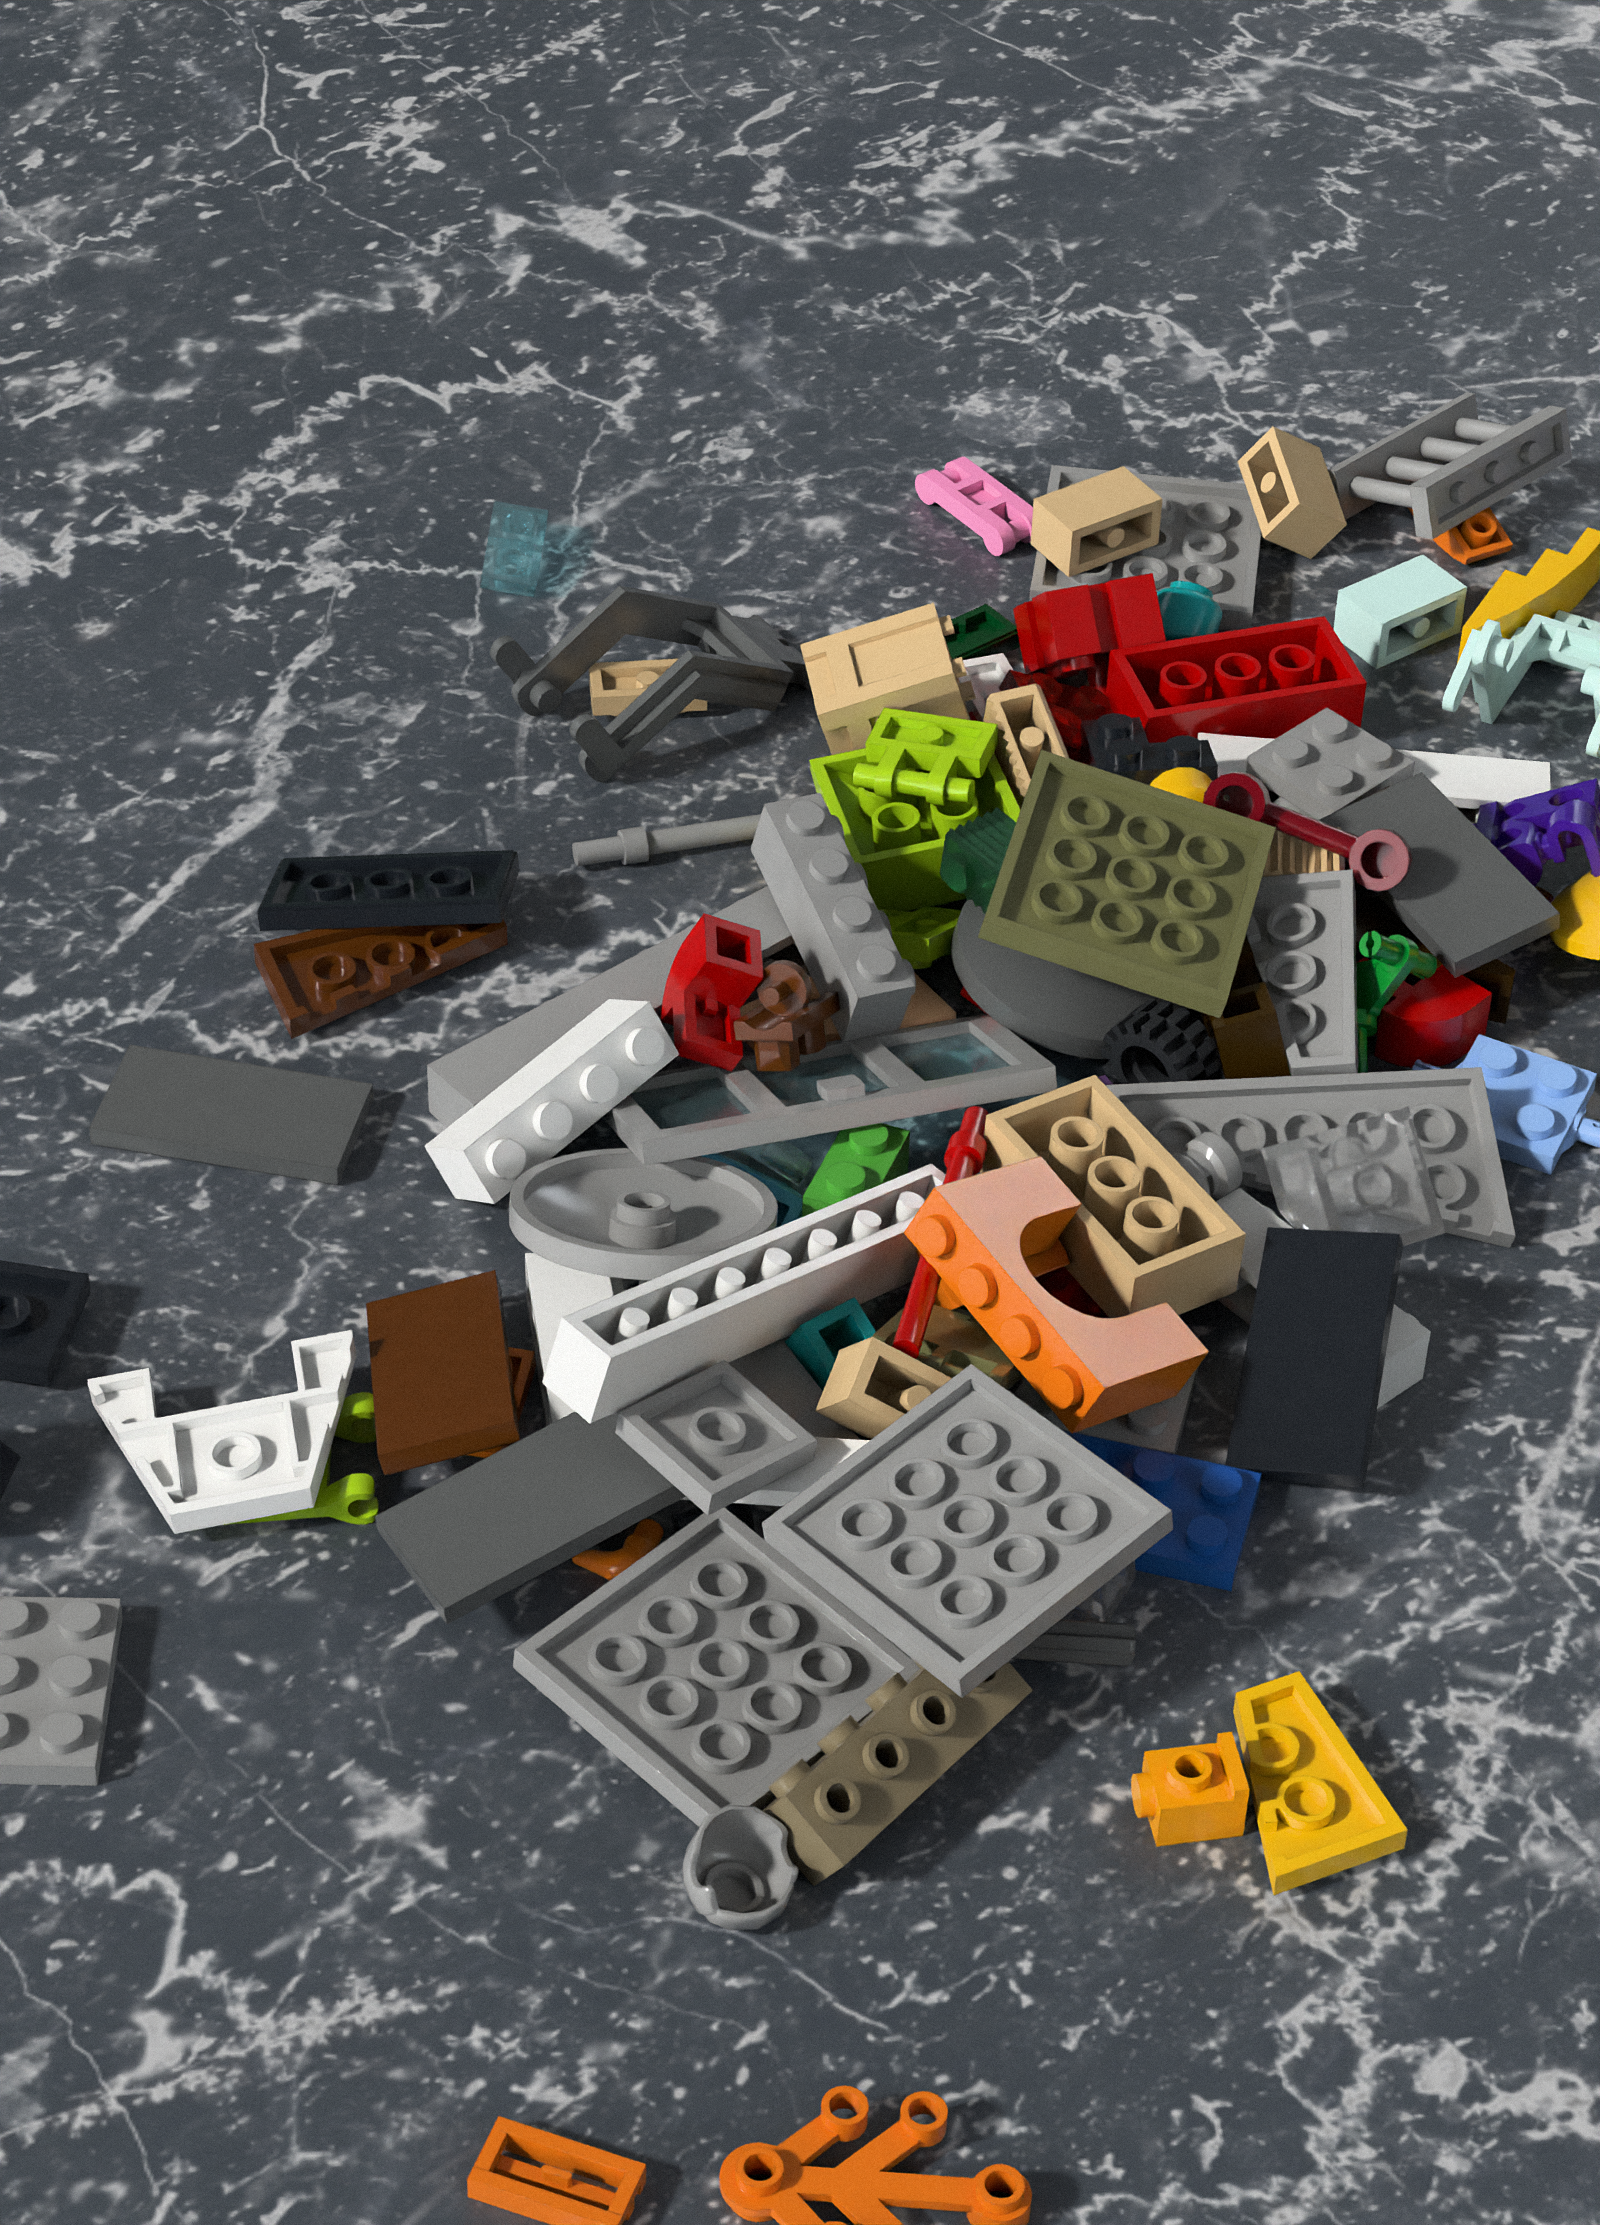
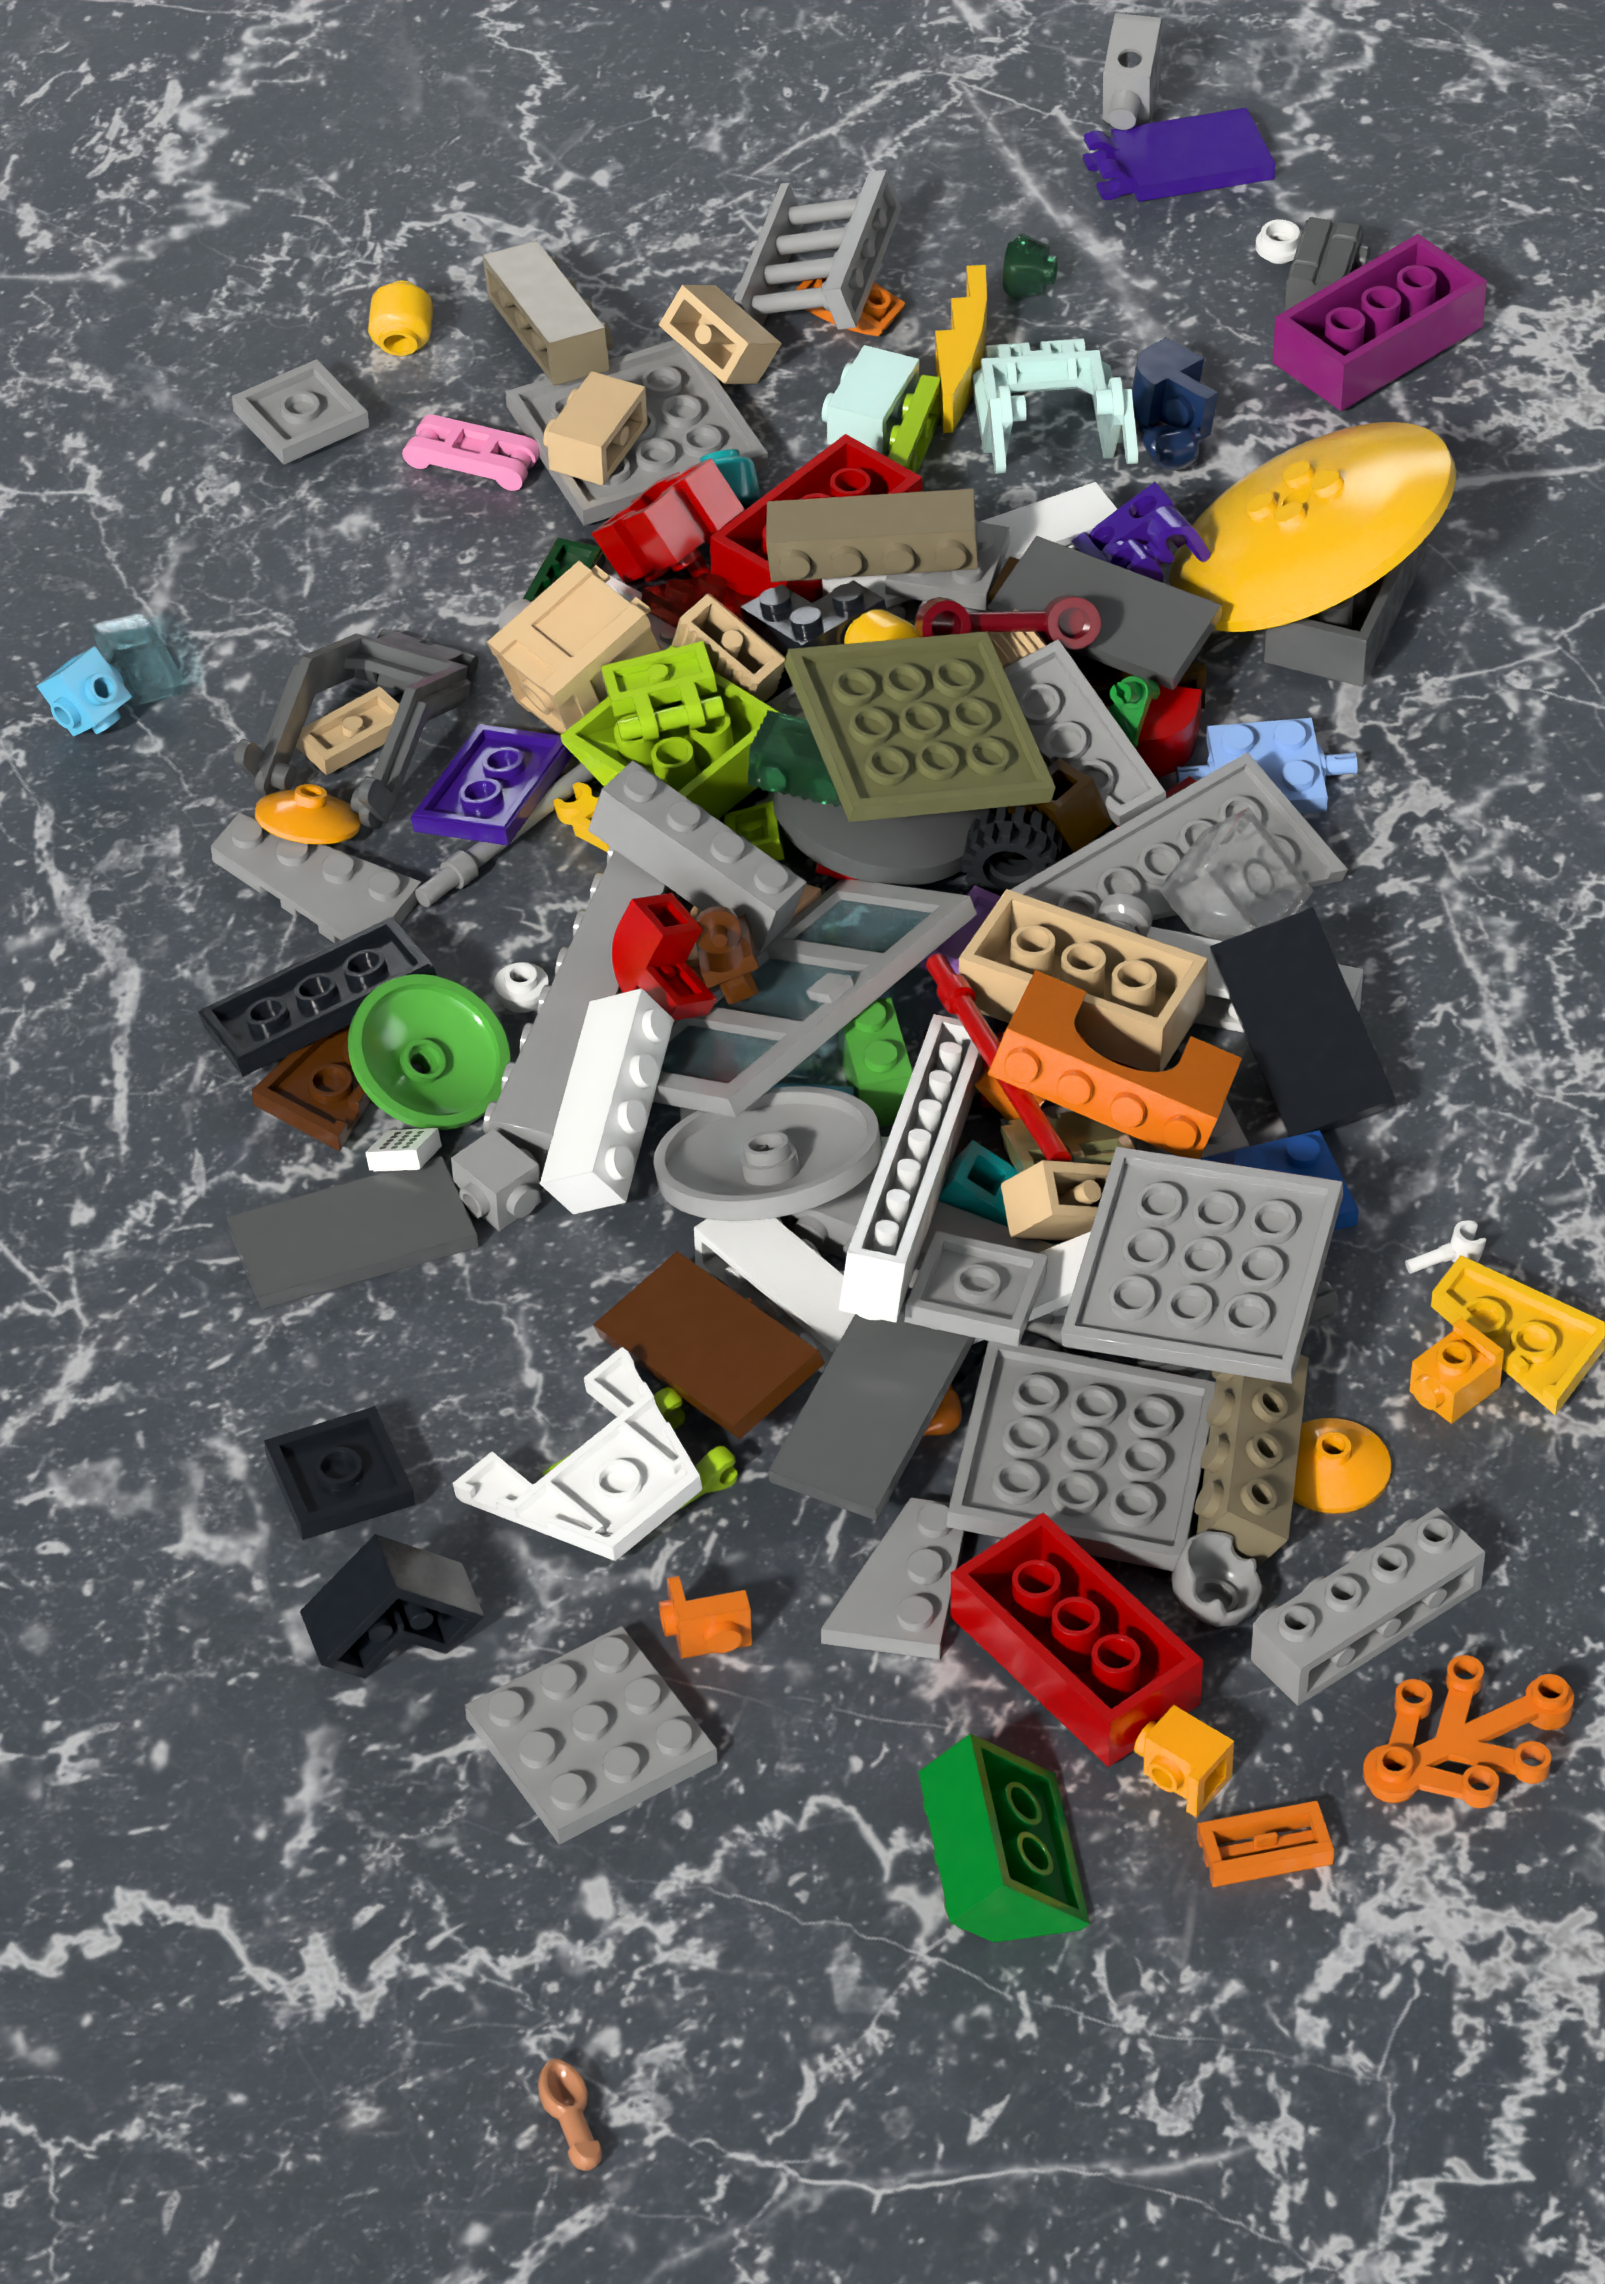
camera: 30 degrees left, 5 degrees up
(200, 1639) = (705, 1623): none -> orange bracket
(277, 2023) = (1001, 1844): none -> green slope
(341, 1061) = (403, 1149): none -> white tile
(397, 1127) = (497, 1180): none -> light grey brick
(428, 1713) = (903, 1589): none -> light grey wing
(436, 948) = (444, 1032): none -> bright green dish
(437, 534) = (85, 693): none -> medium azure brick
(498, 797) = (314, 879): none -> light grey wing
(532, 738) = (307, 816): none -> light orange dish
(534, 1851) = (1074, 1637): none -> red brick
(544, 2041) = (1186, 1757): none -> light orange brick
(587, 962) = (520, 986): none -> white plate
(721, 784) = (492, 785): none -> dark purple tile
(853, 412) = (300, 411): none -> light grey plate
(881, 1984) = (1366, 1605): none -> light grey brick
(981, 1841) = (1339, 1466): none -> light orange dish
(1013, 370) = (400, 318): none -> yellow head
(1148, 412) = (547, 312): none -> brick
(1254, 704) = (872, 535): none -> dark tan brick
(1321, 1669) = (1460, 1244): none -> white hand
(1412, 656) = (919, 420): none -> lime plate

